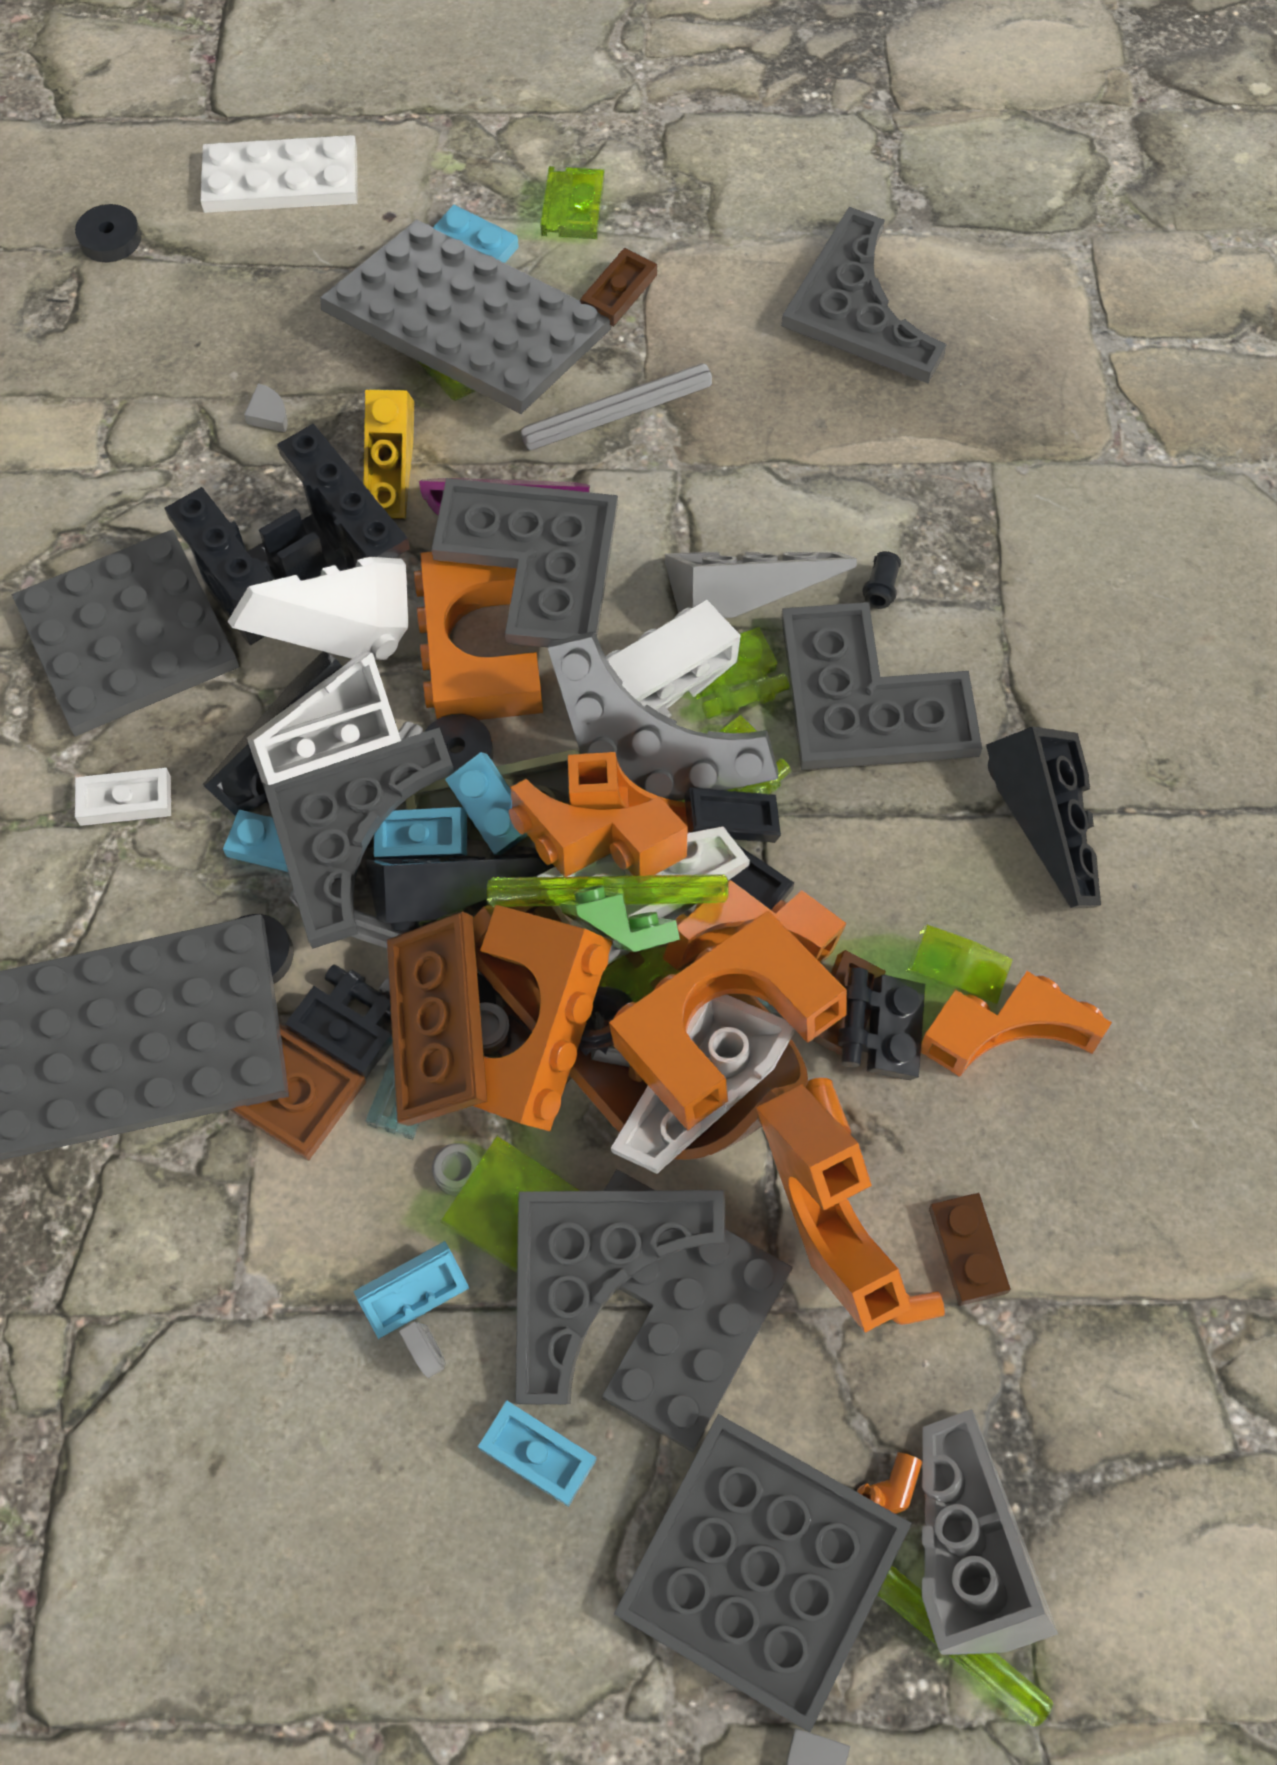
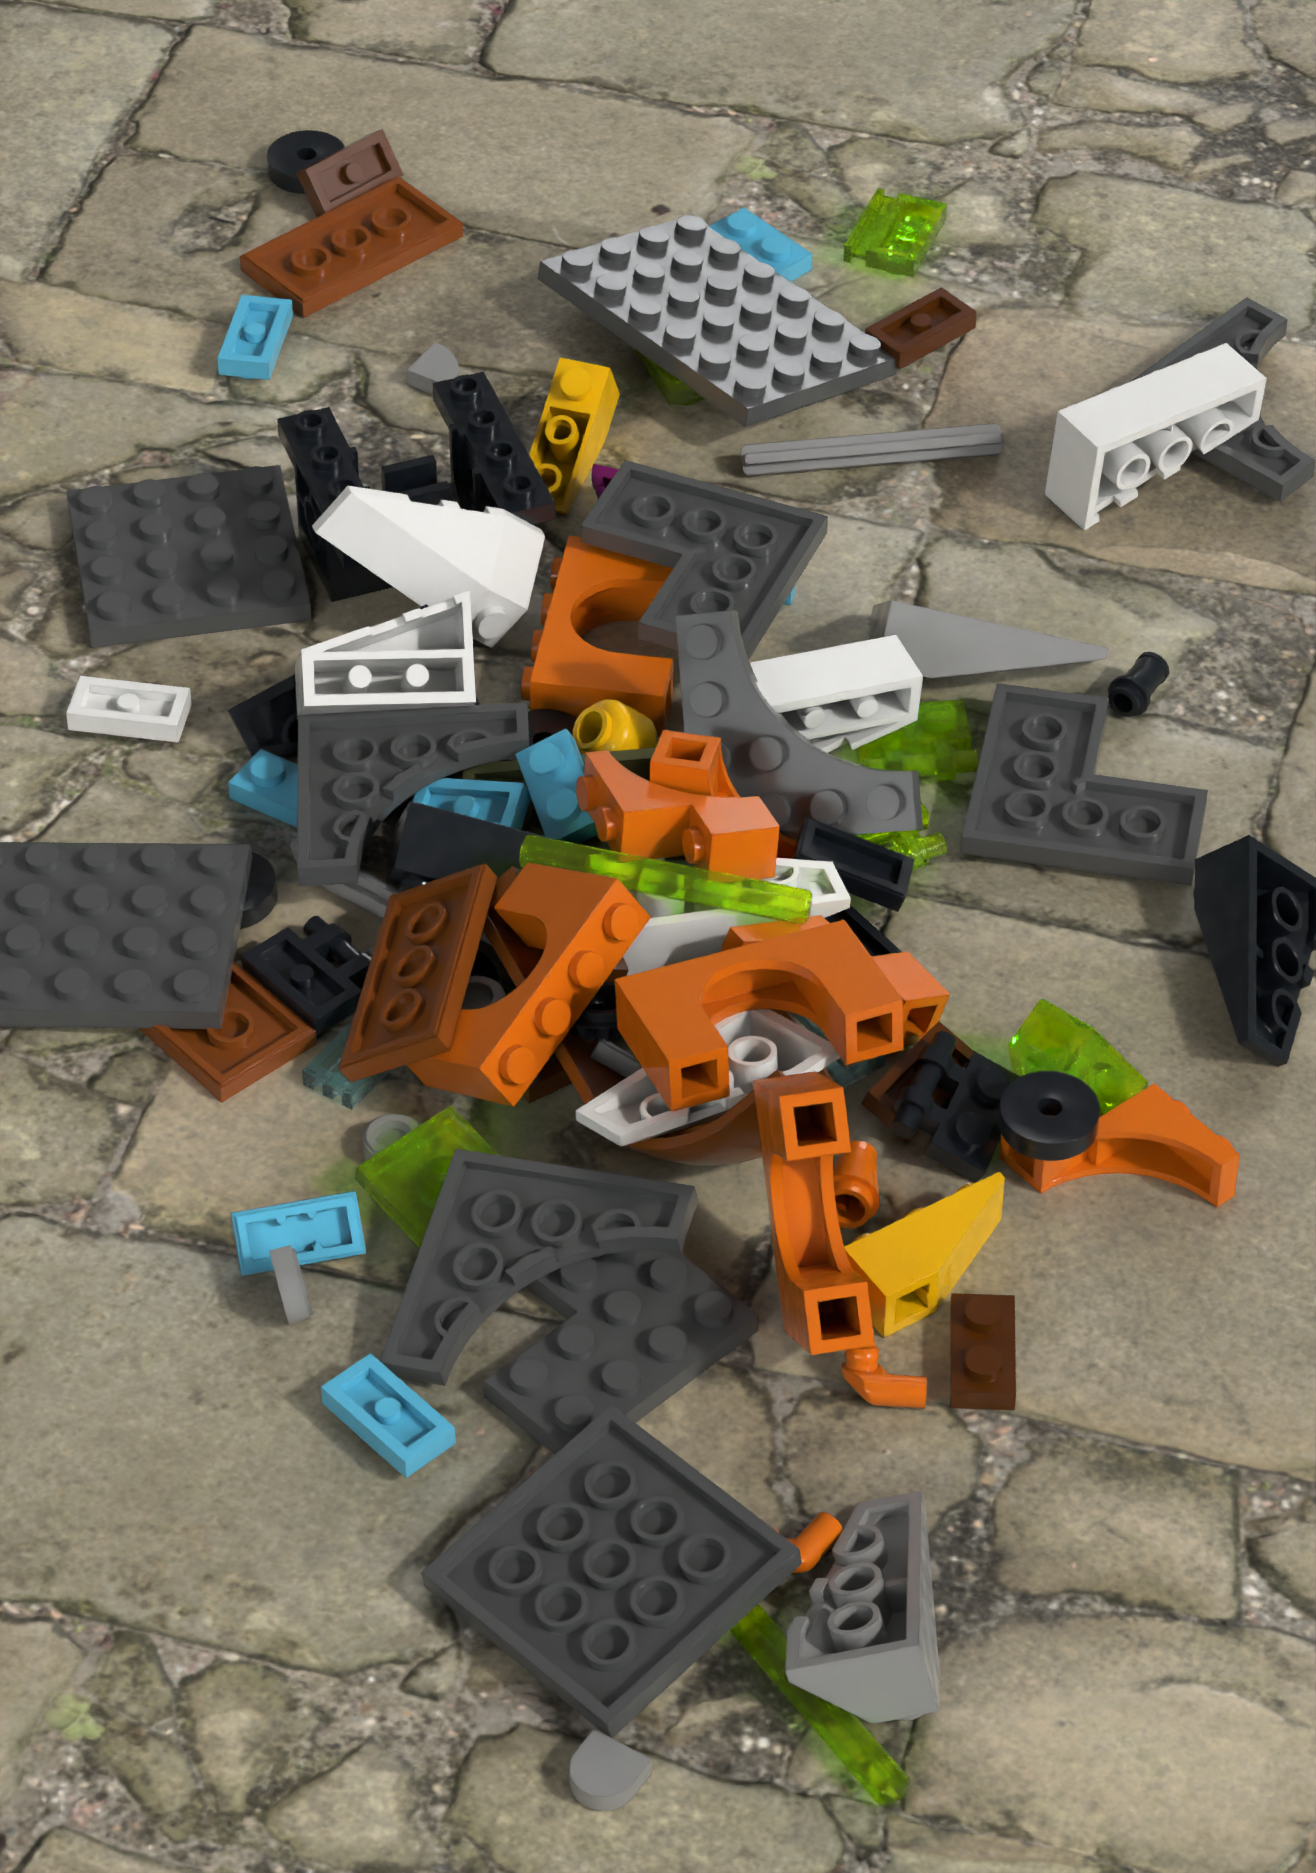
camera: 15 degrees right, 20 degrees down
(117, 410) = (255, 337): none -> medium azure plate
(145, 240) = (349, 172): none -> reddish brown plate
(165, 305) = (351, 246): none -> dark orange tile
(279, 174) = (539, 140): white plate -> none
(513, 736) = (613, 727): none -> yellow head
(606, 916) = (652, 884): bright green slope -> none
(824, 349) = (1148, 429): none -> white wedge
(900, 1175) = (925, 1253): none -> yellow slope
(961, 1050) = (1049, 1137): none -> black piece

